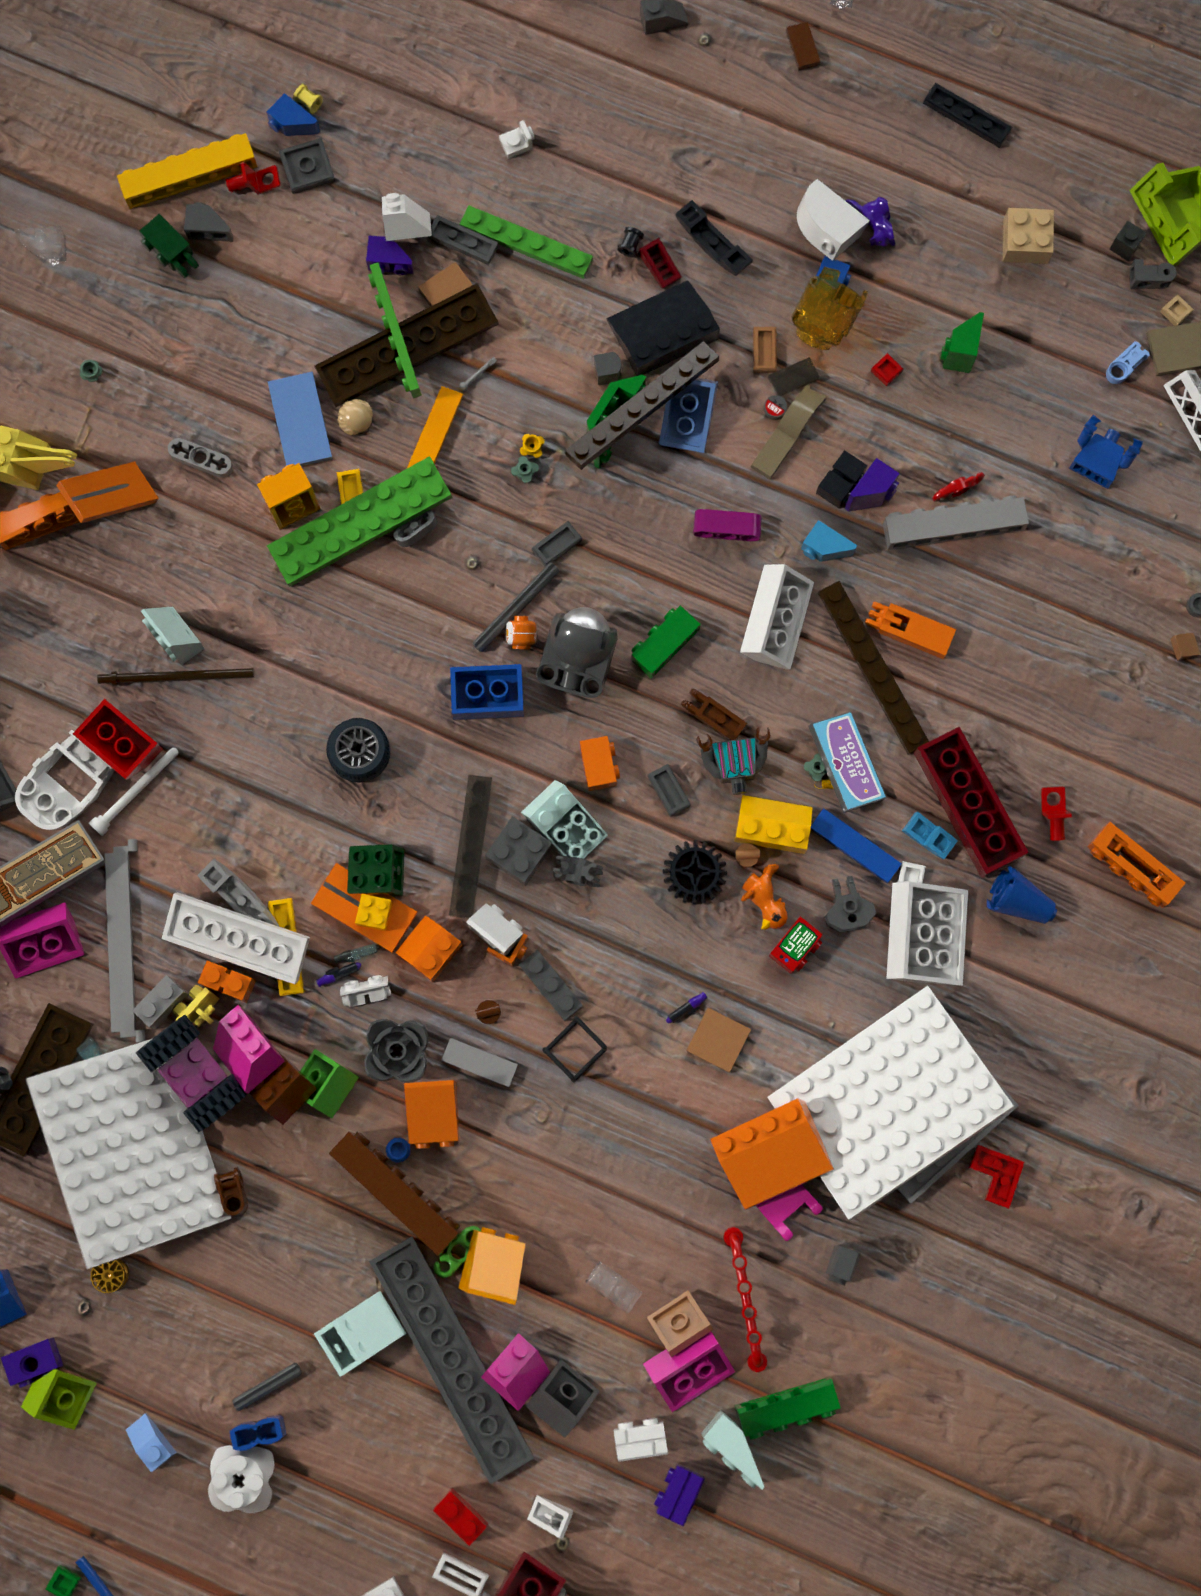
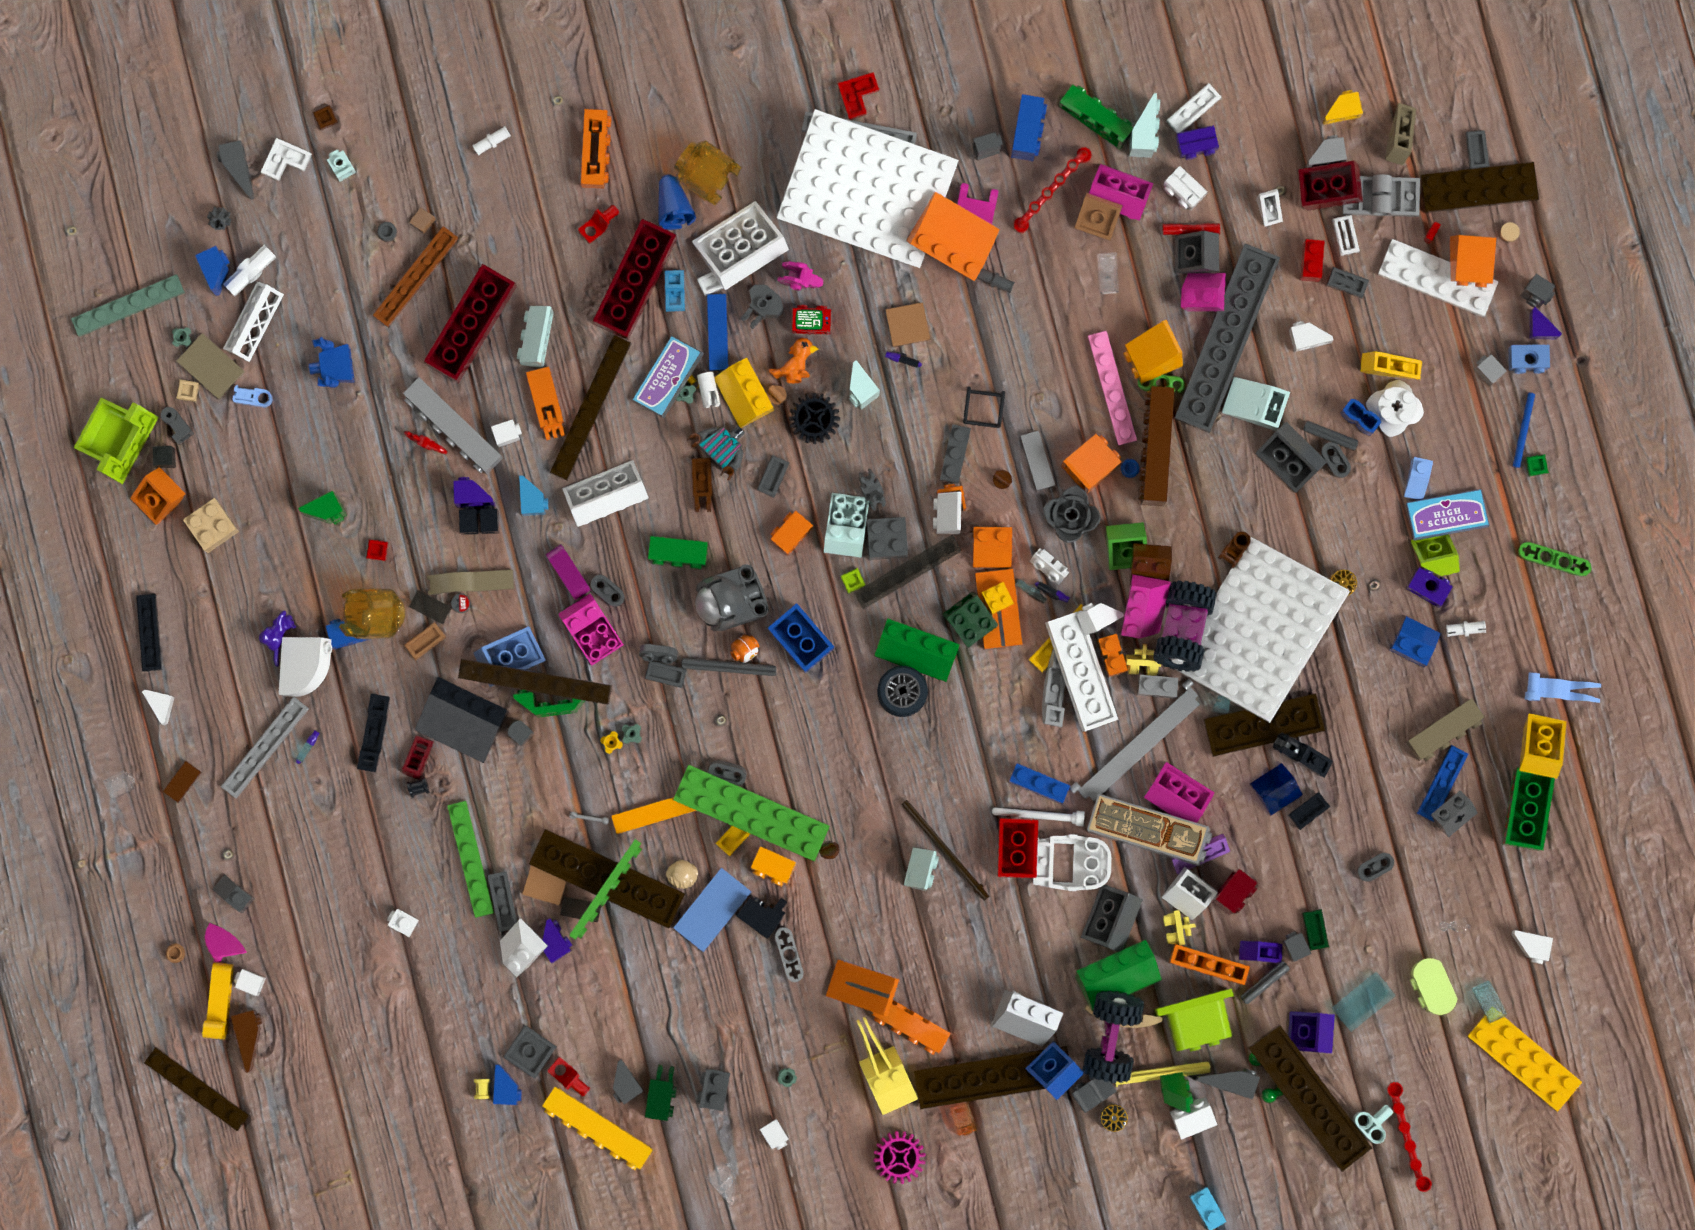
camera: 130 degrees left, 5 degrees up
(48, 319) = (774, 1135): none -> white brick
(89, 1443) = (1447, 514): none -> tile
(135, 295) = (714, 1089): none -> dark grey bracket
(162, 812) = (1039, 783): none -> blue brick
(238, 1370) = (1336, 460): none -> dark grey plate
(254, 455) = (762, 919): none -> black hinge
(264, 567) = (829, 851): none -> reddish brown piece
(273, 993) = (1097, 617): none -> white slope
(276, 1326) = (1291, 457): none -> dark grey slope
(286, 1510) = (1390, 365): none -> yellow slope
(386, 1445) = (1308, 336): none -> white slope
(388, 797) = (917, 649): none -> green slope
(403, 300) = (576, 908): none -> clear smoke tile
(409, 1536) = (1347, 282): none -> dark grey plate
(493, 1197) = (1112, 388): none -> bright pink plate
(505, 788) = (852, 580): none -> lime tile
(574, 555) = (658, 653): none -> dark grey plate
(603, 1400) = (1177, 229): none -> red piece
(656, 505) = (590, 629): none -> dark pink slope
(679, 548) = (607, 591): none -> dark grey plate
(689, 940) = (862, 387): none -> light aqua slope
(695, 1164) = (995, 280): none -> dark grey pin
(718, 1520) = (1193, 109): none -> white tile
(748, 175) = (306, 748): none -> piece
(777, 139) = (265, 747): none -> light grey tile
(809, 794) = (708, 389): none -> white hinge
(828, 1324) = (1029, 127): none -> blue brick
(848, 967) = (800, 276): none -> dark pink hinge
(891, 74) = (160, 704): none -> white slope
(909, 567) = (506, 432): none -> white brick
(984, 665) = (535, 336): none -> light aqua slope
(1032, 953) = (705, 170): none -> clear yellow piece
(1045, 611) = (470, 323): none -> dark red brick
(1094, 211) = (157, 495): none -> orange slope
(1132, 598) = (415, 276): none -> dark orange plate

